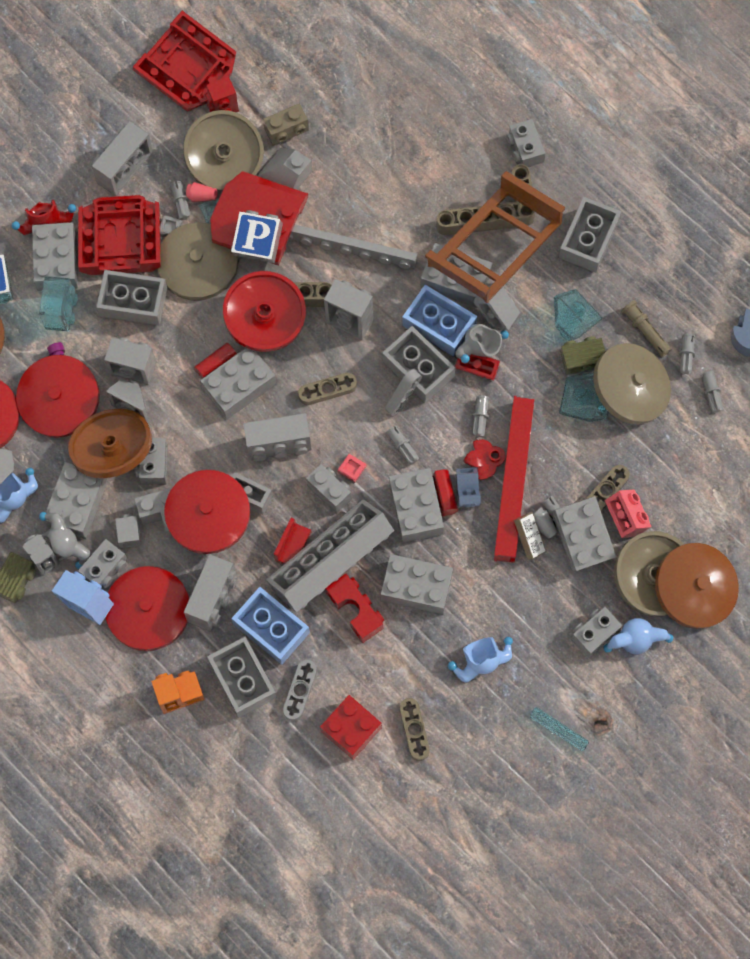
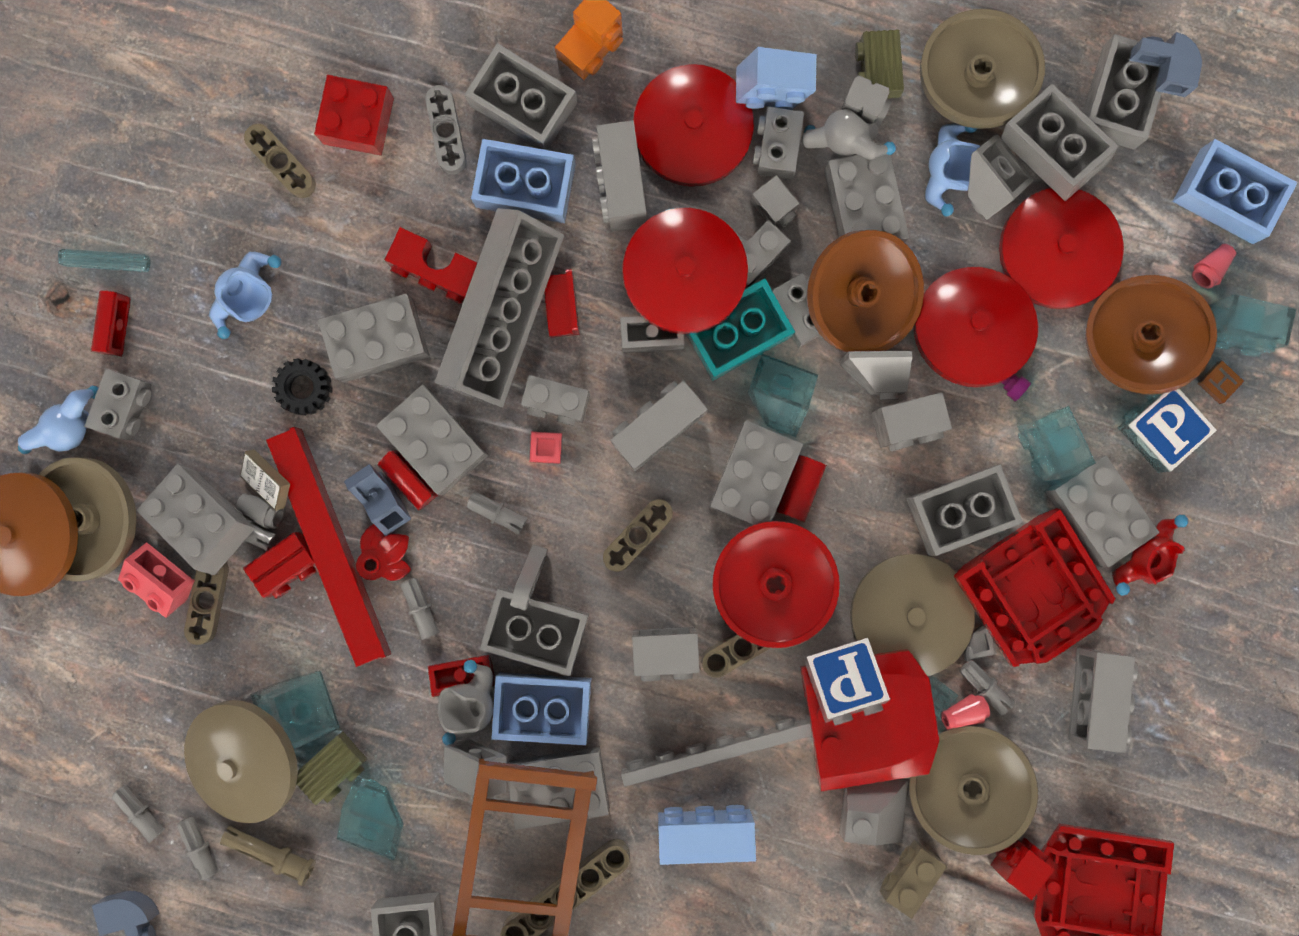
camera: 150 degrees right, 15 degrees up
(189, 458) = (746, 333): none -> teal brick
(193, 419) = (782, 394): none -> clear light blue slope
(386, 204) = (706, 835): none -> light blue brick
(478, 569) = (284, 382): none -> black tyre
(548, 482) = (281, 566): none -> red brick
(576, 686) = (110, 323): none -> red brick

